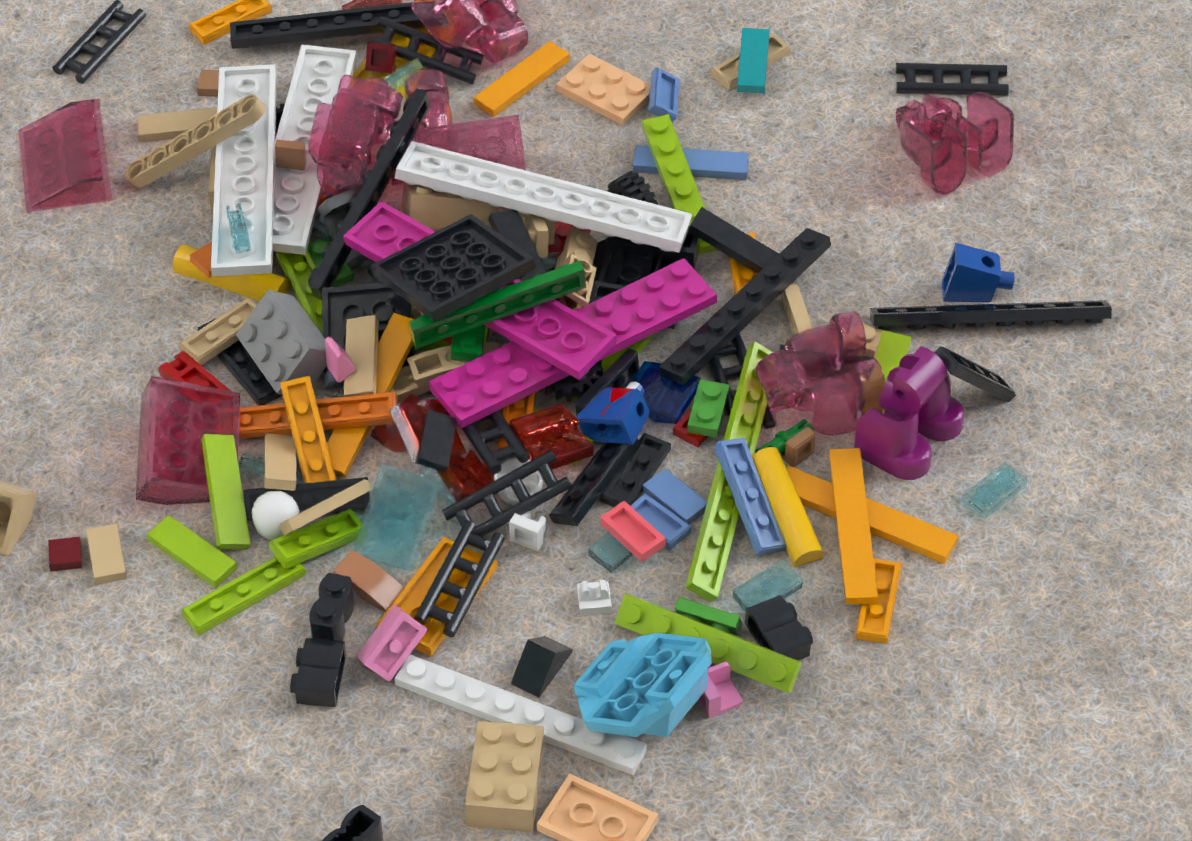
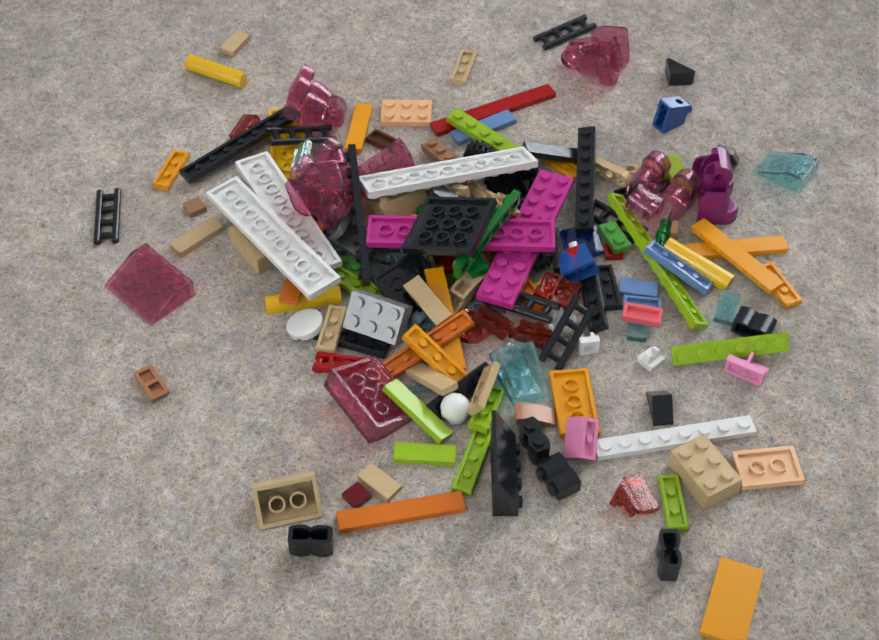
camera: 35 degrees left, 0 degrees up
(98, 603) = (400, 511): none -> orange tile
(195, 141) = (226, 234): tan beam -> none
(199, 307) = (305, 324): none -> white tile
(238, 229) = (308, 266): clear light blue piece -> none
(250, 614) = (504, 468): none -> black slope
(290, 154) = (292, 216): medium nougat tile -> none
(337, 360) = (420, 308): bright pink slope -> none
(380, 57) = (282, 148): dark red tile -> none
(390, 753) = (634, 496): none -> clear red slope
(432, 792) = (673, 502): none -> lime tile
(436, 440) = (507, 322): black tile -> none
(465, 595) = (585, 377): black bar -> none
(536, 115) = (379, 139): none -> reddish brown tile
(591, 165) = (438, 151): none -> medium nougat plate
(643, 684) = (732, 383): medium azure piece -> none
(663, 94) = (439, 101): medium blue tile -> none
(708, 615) = (720, 334): bright green plate -> none
(753, 60) = (468, 65): teal tile -> none
(759, 146) = (512, 103): none -> red tile
(994, 490) = (775, 206): clear light blue plate -> none
(1003, 314) = (697, 125): black plate -> none
(1051, 223) = (678, 74): none -> black slope
(1068, 449) = (788, 169): none -> clear light blue slope

